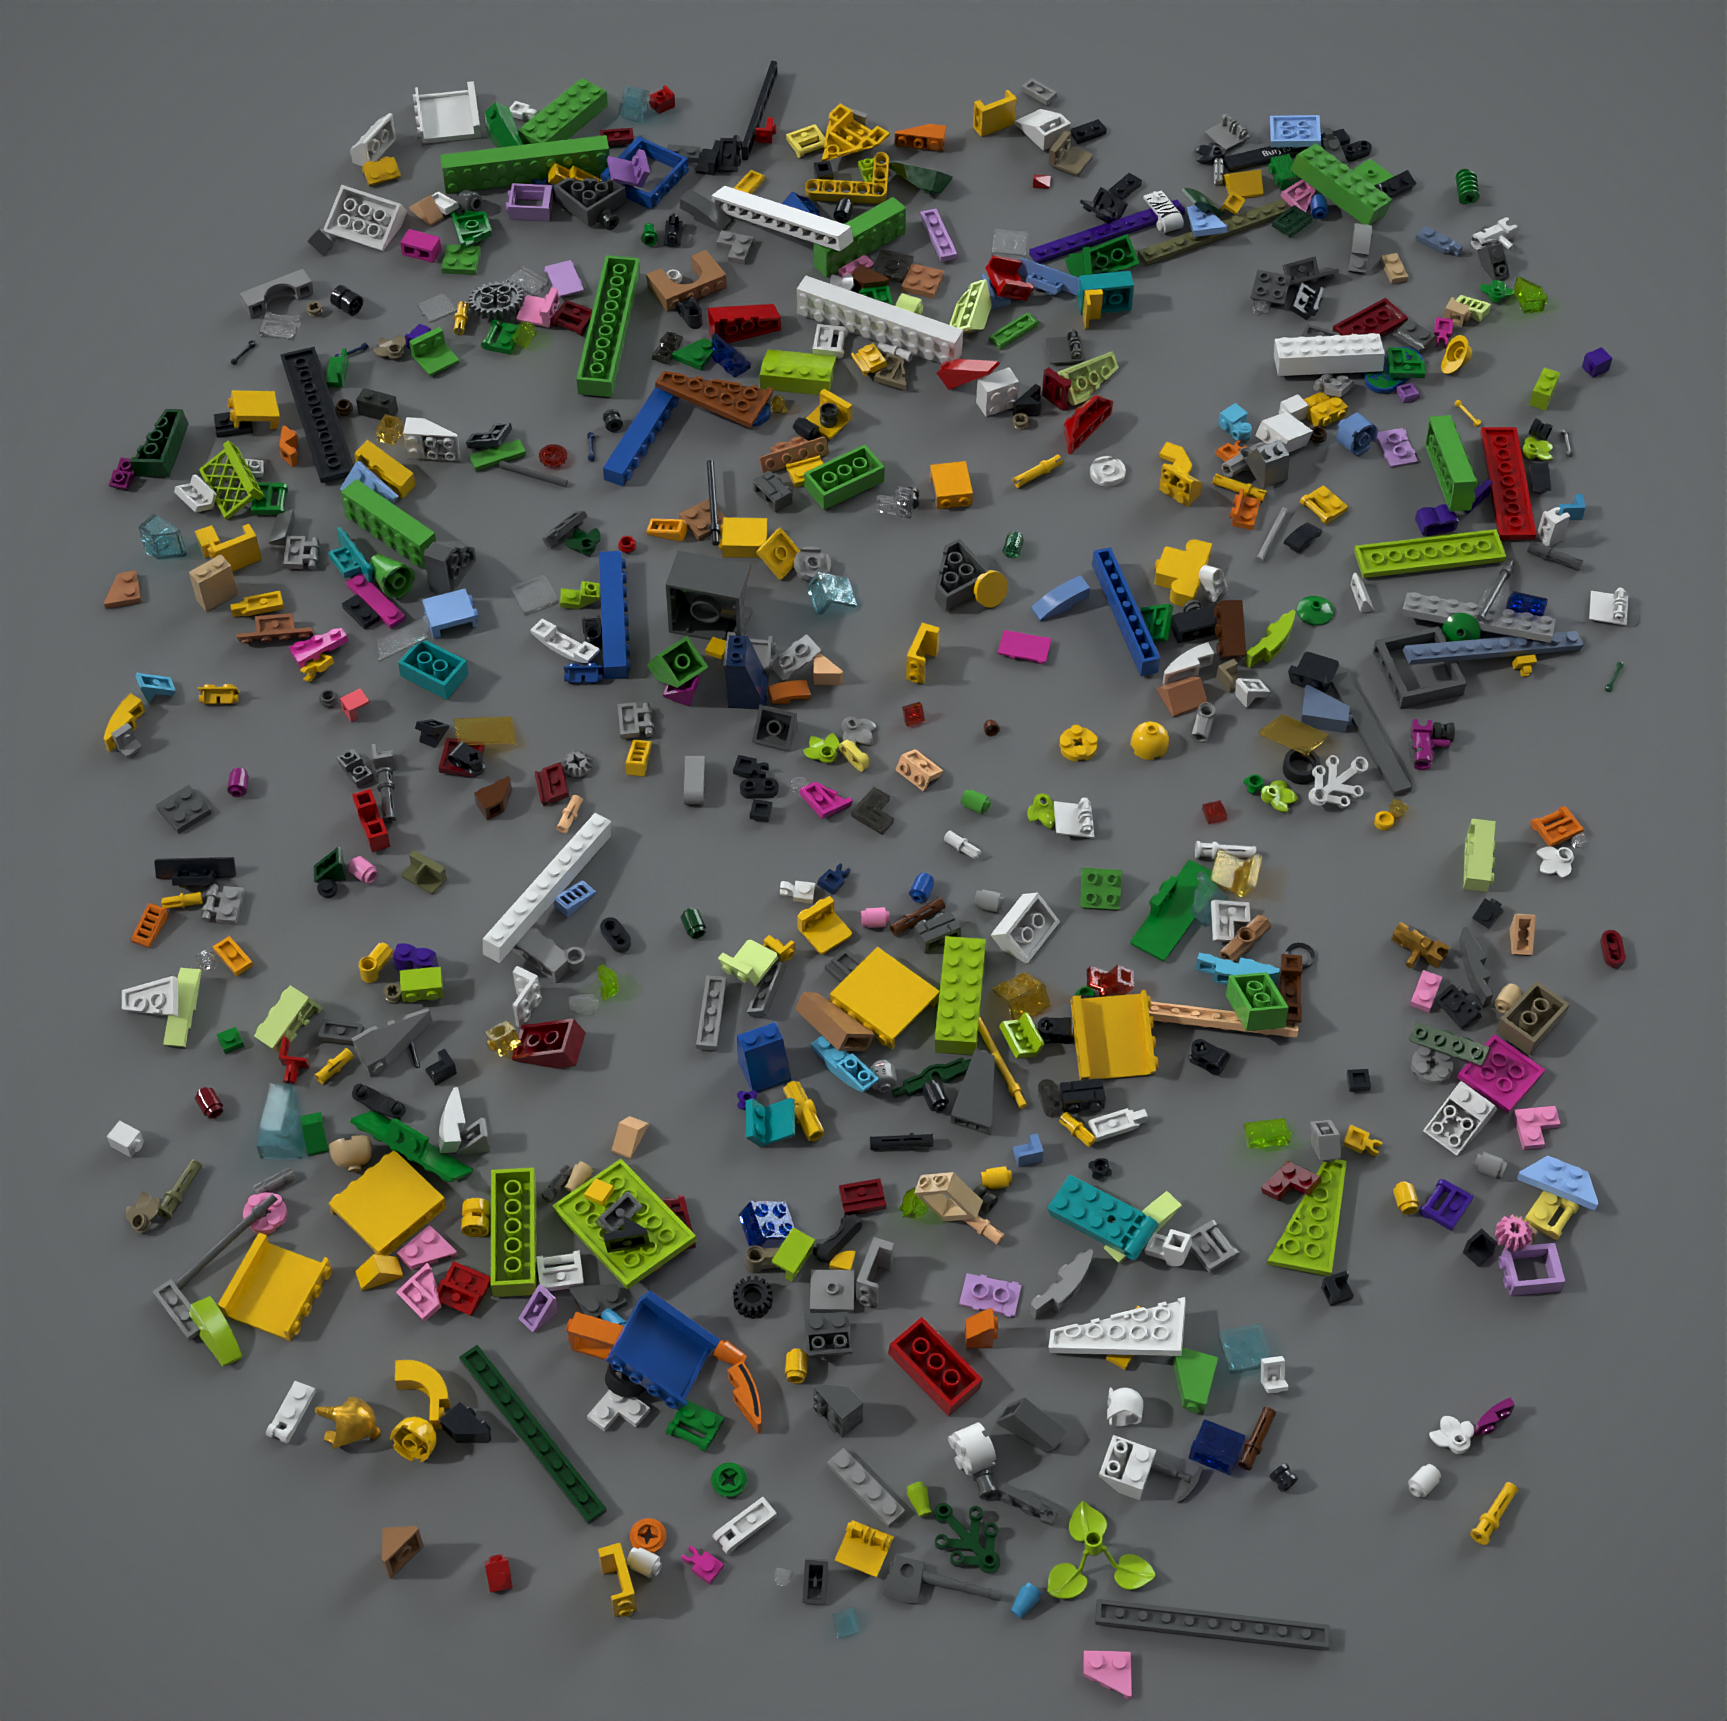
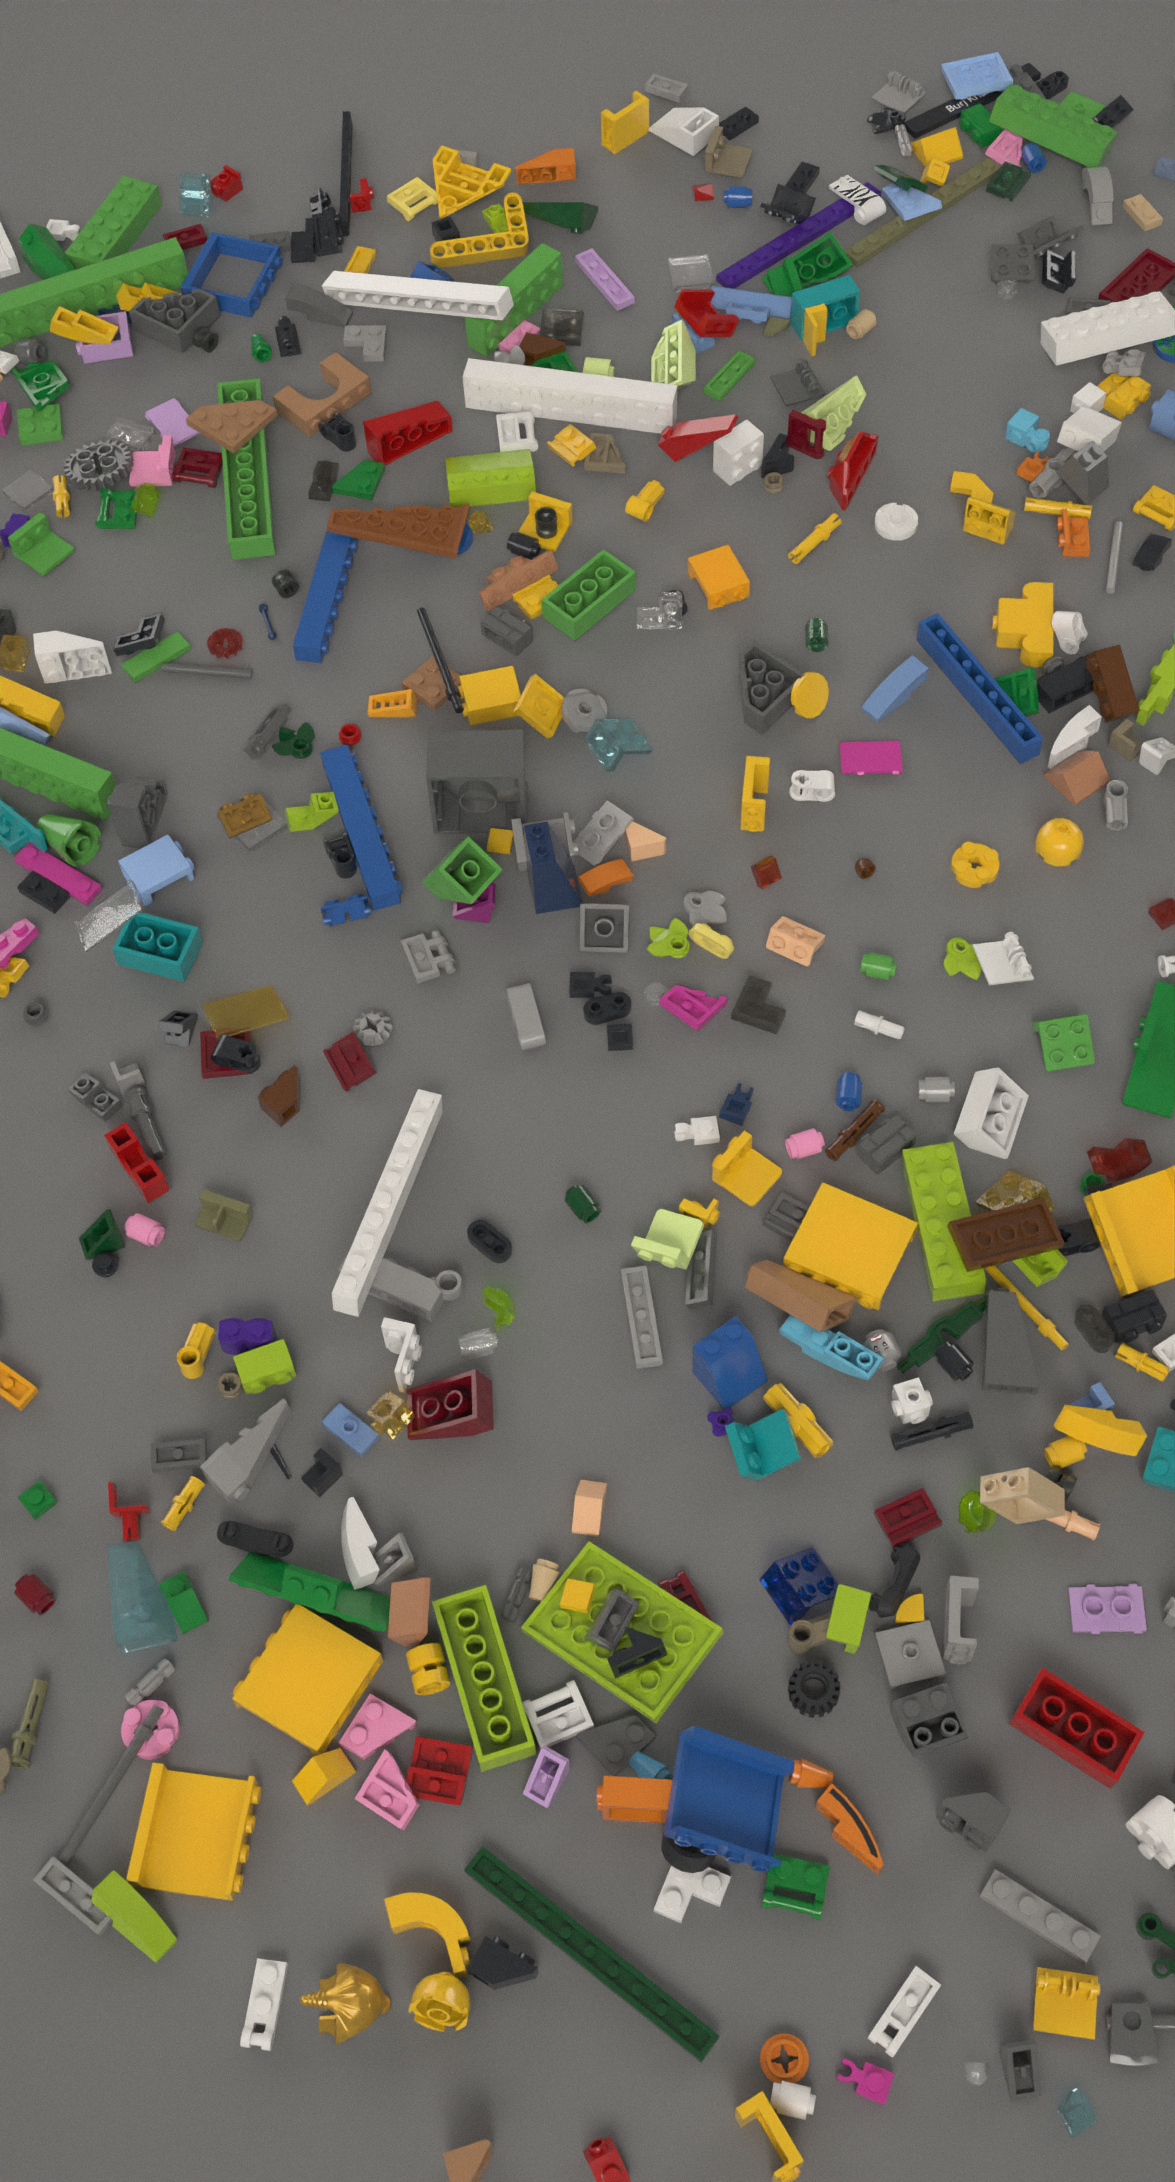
camera: 10 degrees left, 5 degrees up
(286, 1018) = (103, 1456): yellowish green wedge -> none
(351, 1153) = (241, 1620): tan cylinder -> none
(352, 702) = (69, 1012): coral panel -> none
(471, 1043) = (350, 1430): none -> medium blue plate
(472, 1173) = (409, 1611): none -> nougat slope
(514, 191) = (82, 327): none -> yellow slope
(527, 586) = (244, 815): none -> pearl gold bracket
(562, 644) = (310, 879): white slope -> none
(569, 909) = (420, 1221): light blue slope -> none
(573, 805) = (383, 1096): light nougat pin -> none
(607, 288) = (232, 423): none -> medium nougat plate
(630, 172) = (216, 277): medium lavender bracket -> none
(638, 759) = (446, 1016): yellow slope -> none
(675, 276) = (306, 391): white plate -> none
(728, 357) = (401, 476): clear blue bracket -> none
(729, 1470) = (877, 1949): green gear -> none
(732, 128) = (320, 202): none -> black hinge
(796, 1366) = (899, 1770): yellow brick -> none
(843, 210) = (483, 271): black brick -> none
(891, 1116) = (911, 1401): none -> white brick
(895, 350) = (598, 427): white pin -> none
(909, 417) = (643, 504): none -> yellow piece
(919, 1498) = (1112, 1913): lime cone -> none
(922, 280) = (602, 337): nougat plate -> none
(973, 658) = (814, 786): none -> white piece
(981, 1329) = (1117, 1663): orange slope -> none
(1000, 1012) = (1005, 1235): none -> reddish brown plate
(1026, 1166) = (1101, 1429): none -> yellow slope
(1063, 299) = (776, 325): none -> olive tile
(1067, 190) = (738, 197): none -> blue brick
(1132, 311) = (861, 324): none -> tan brick
(1318, 435) = (1128, 425): dark brown plate -> none

